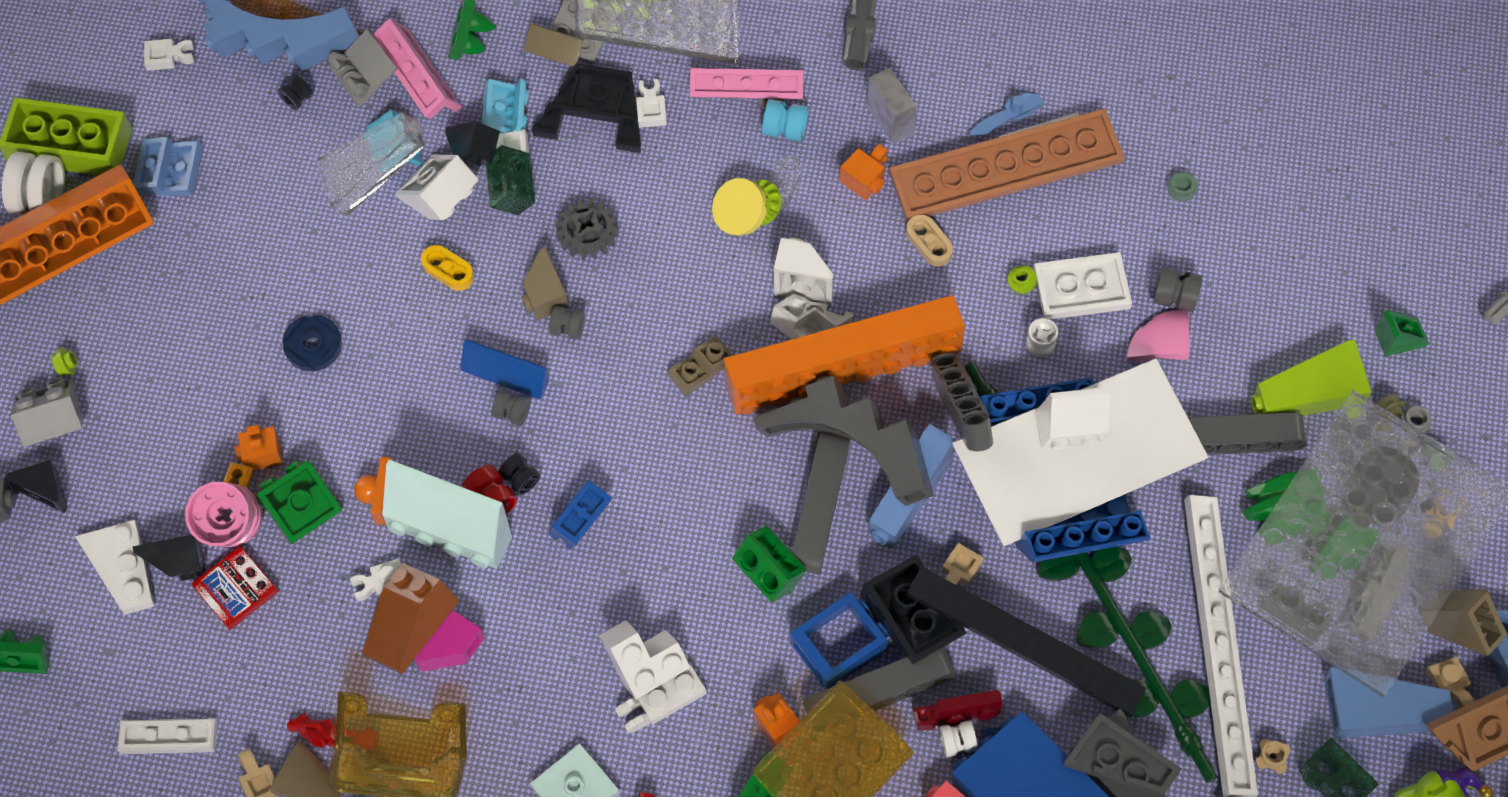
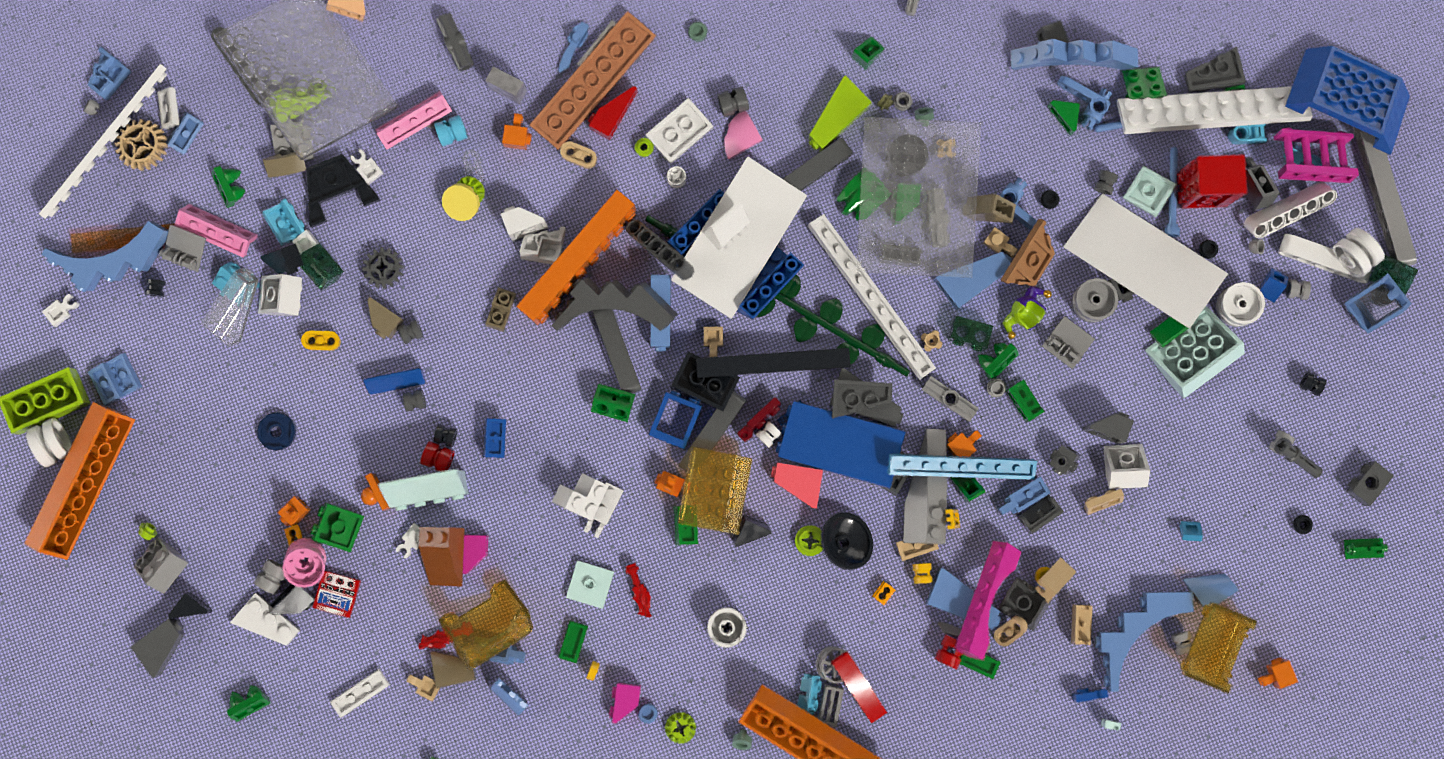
camera: 35 degrees left, 20 degrees up
(167, 511) = (270, 577): none -> light grey wheel
(1007, 215) = (611, 114): none -> red slope

